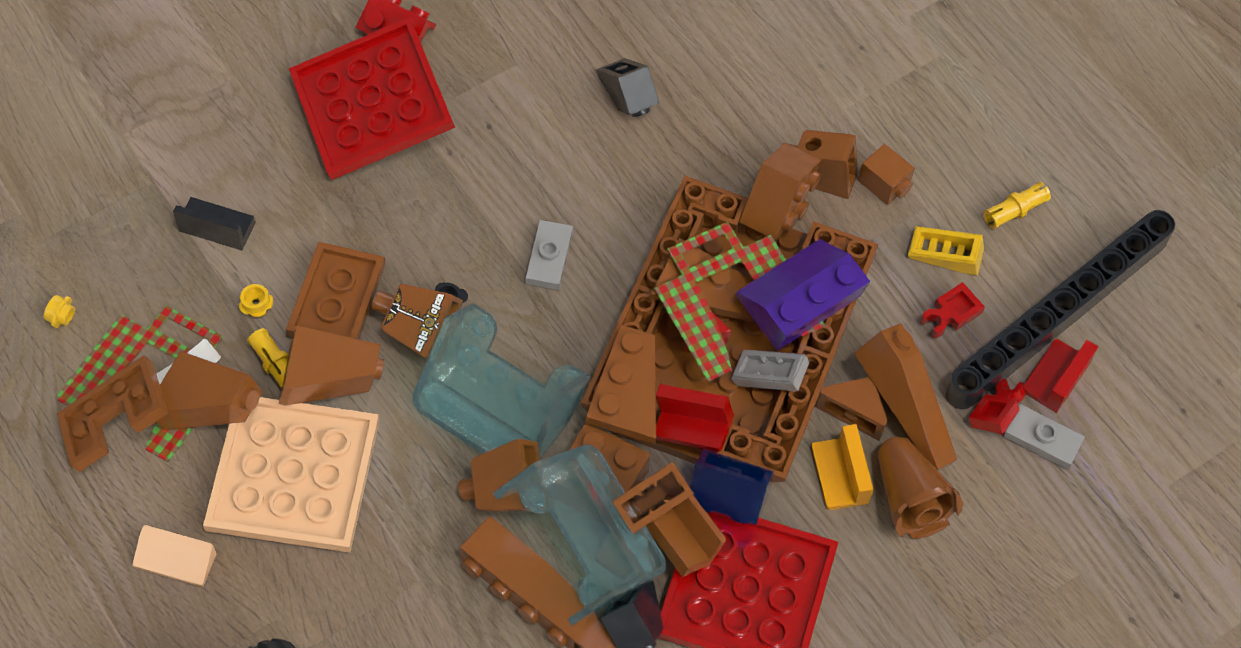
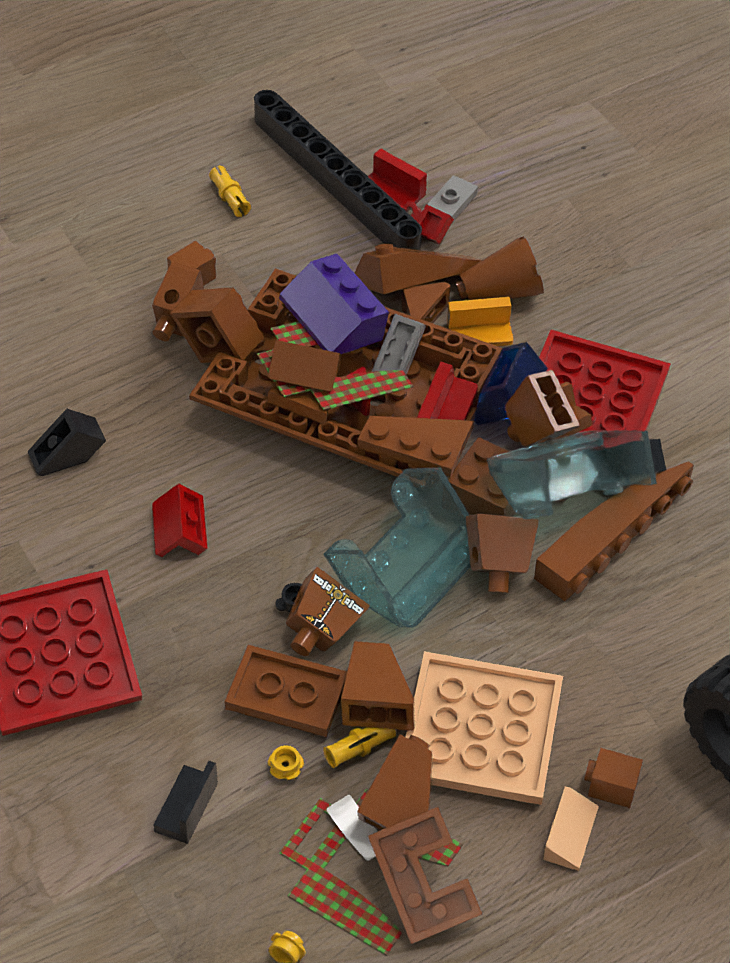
camera: 85 degrees left, 10 degrees down
(227, 596) = (613, 777): none -> dark orange brick
(539, 193) = (179, 521): none -> red panel
(549, 255) = (249, 519): light grey plate -> none
(710, 262) = (304, 365): none -> dark orange panel
(954, 308) = (332, 238): red plate -> none
(955, 262) = (275, 220): yellow slope -> none

